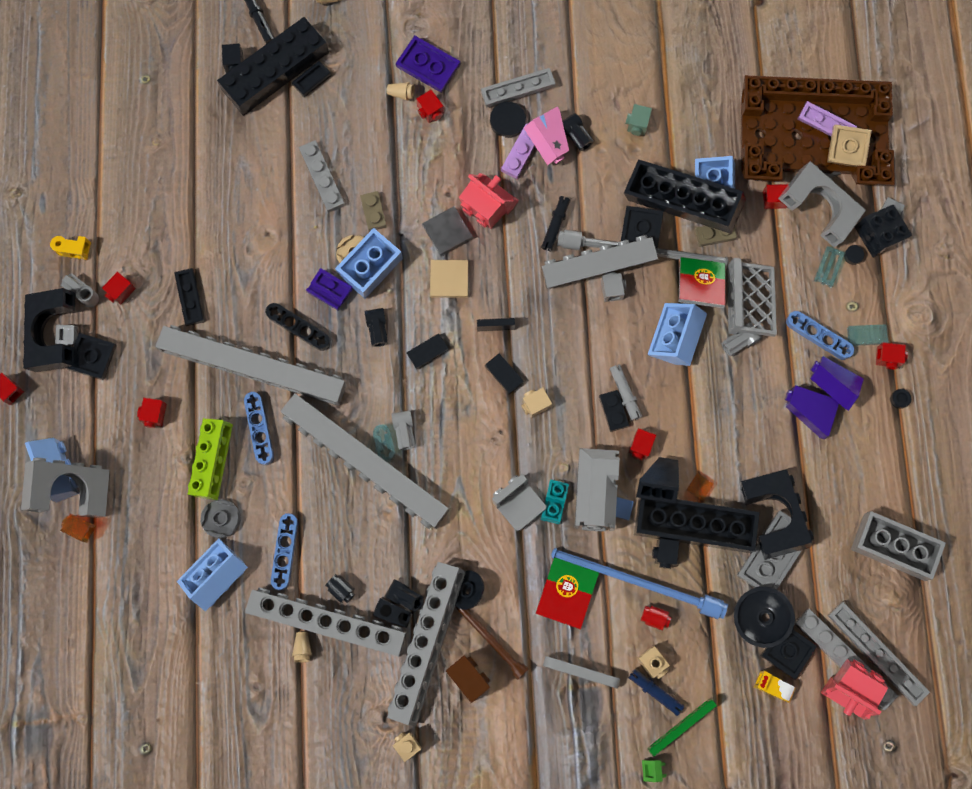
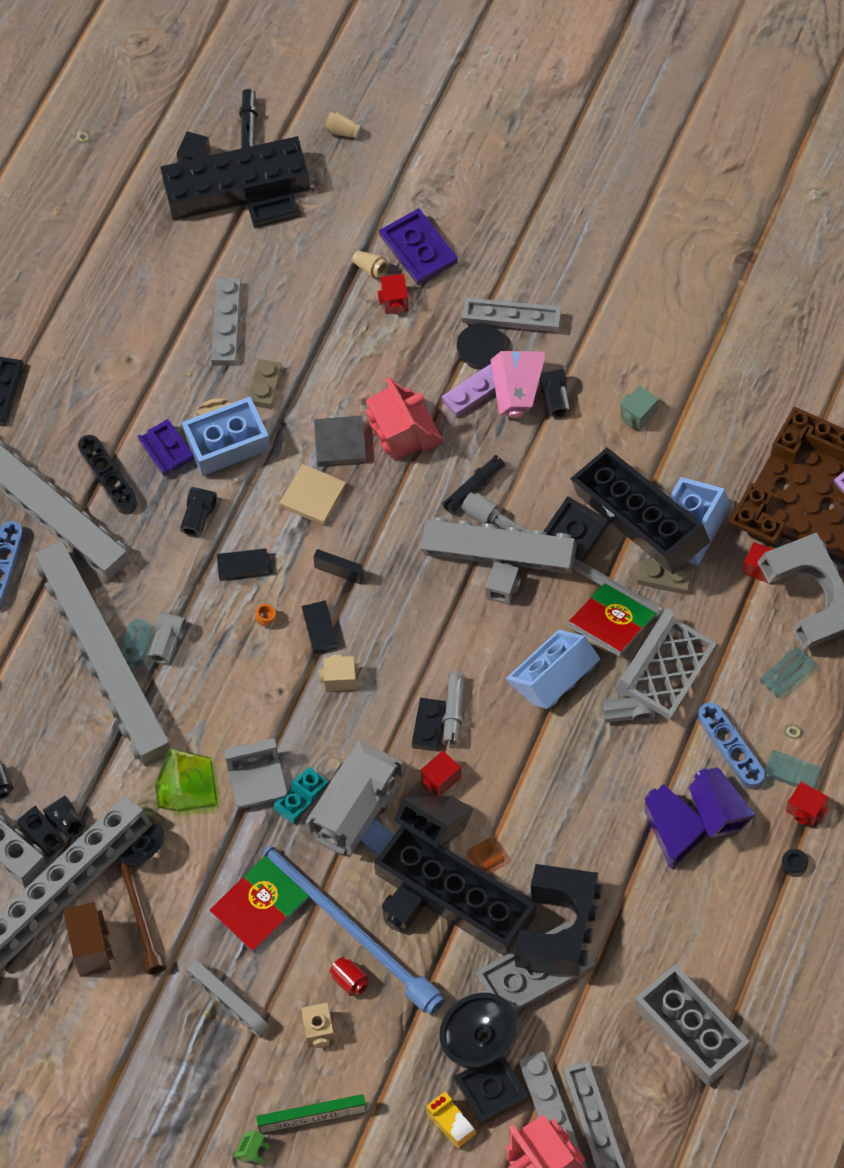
camera: 30 degrees right, 15 degrees down
(465, 380) = (268, 612): none -> orange hinge
(473, 530) = (185, 782): none -> clear neon green slope
(655, 691) = (298, 1051): dark blue pin -> none
(854, 255) = (826, 671): black tile -> none

